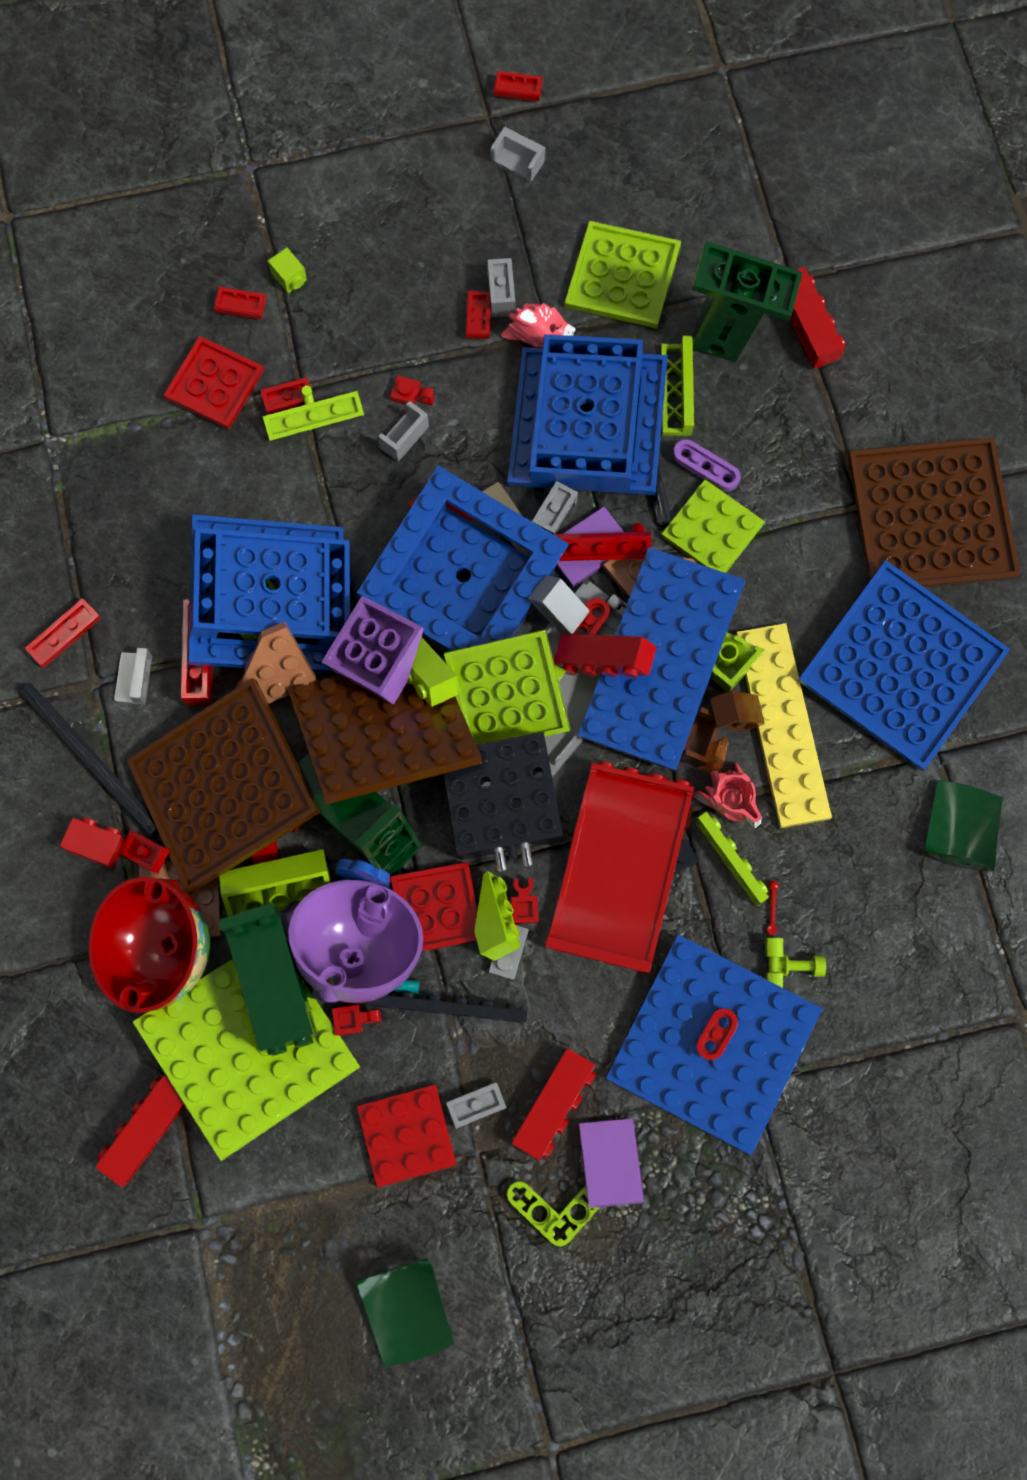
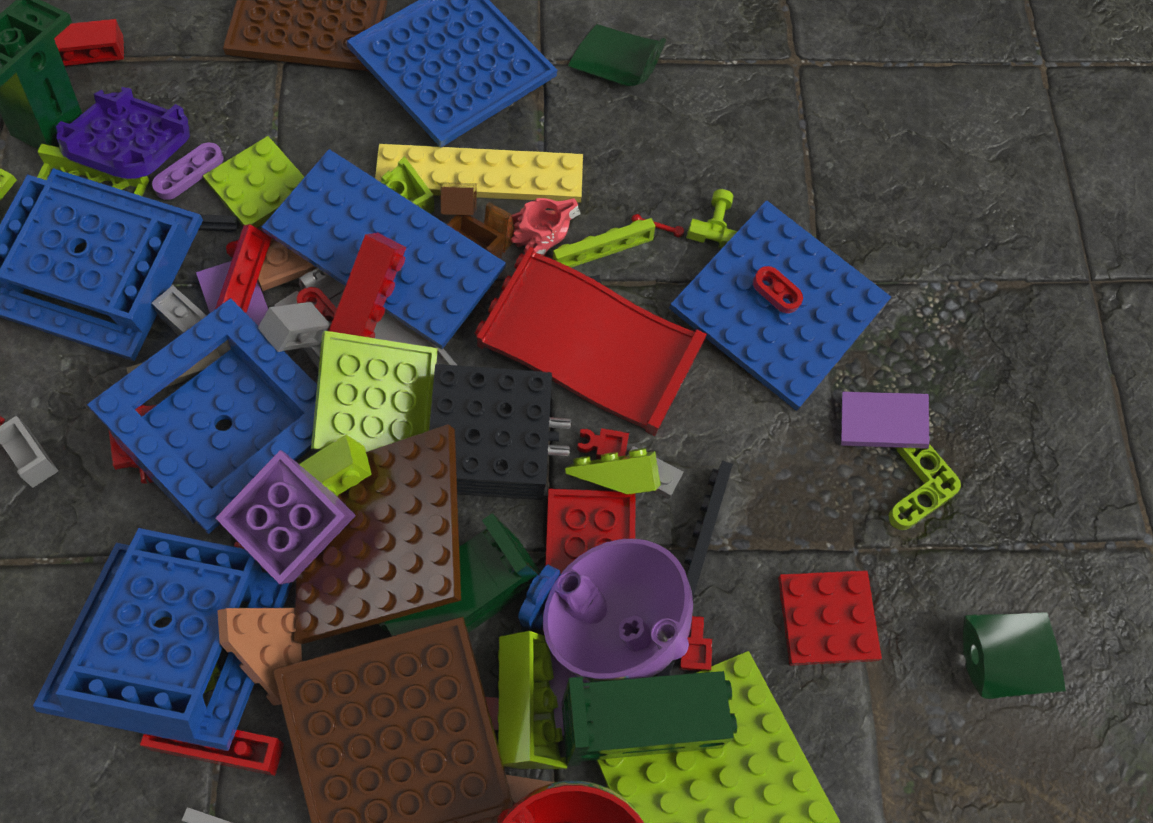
camera: 80 degrees left, 10 degrees down
(476, 1105) = (808, 537): light grey plate -> none
(553, 1105) = (819, 460): red brick -> none
(723, 400) = (123, 135): none -> dark purple tile

